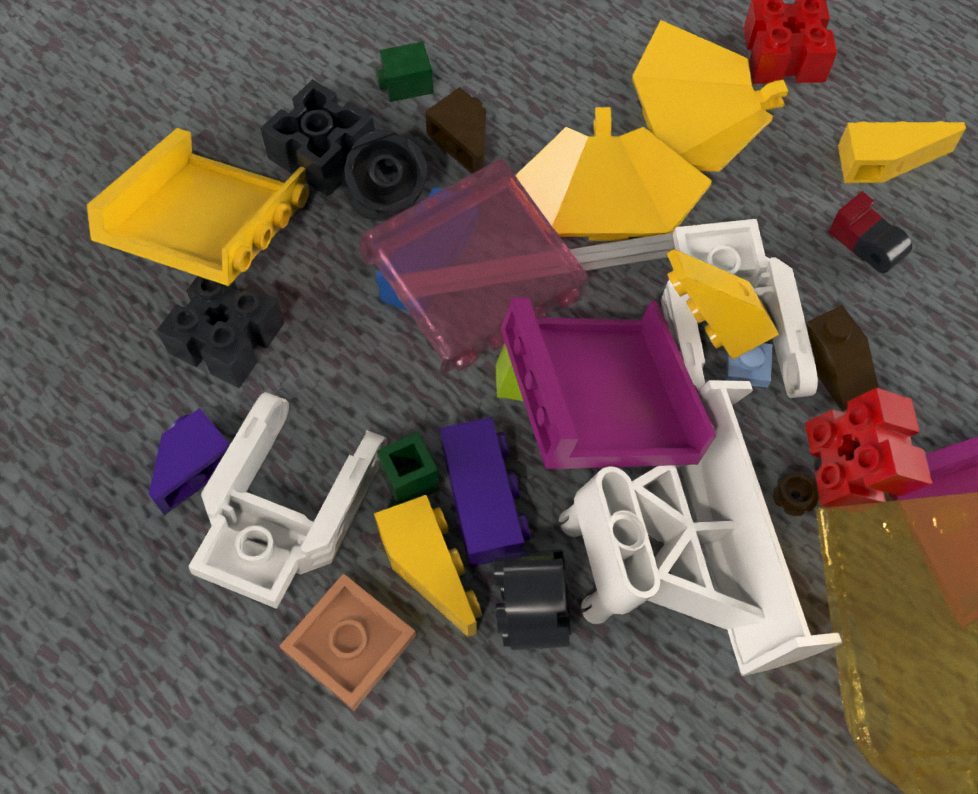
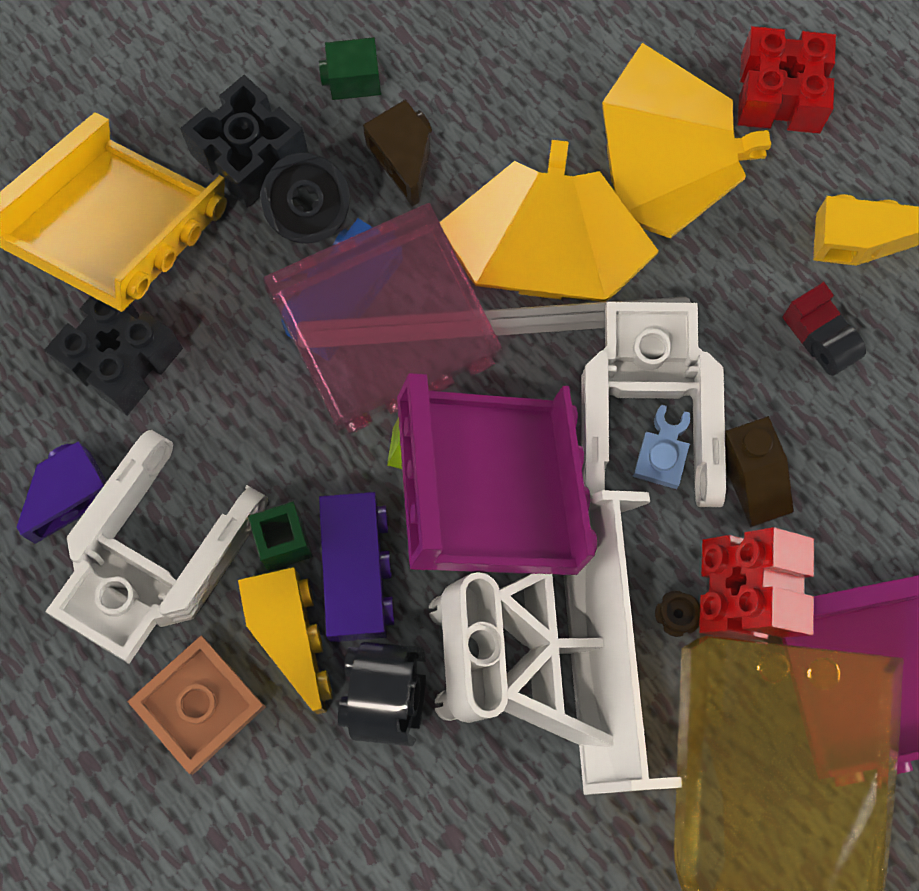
camera: 10 degrees right, 10 degrees up
(725, 301) = (638, 401): yellow slope -> none

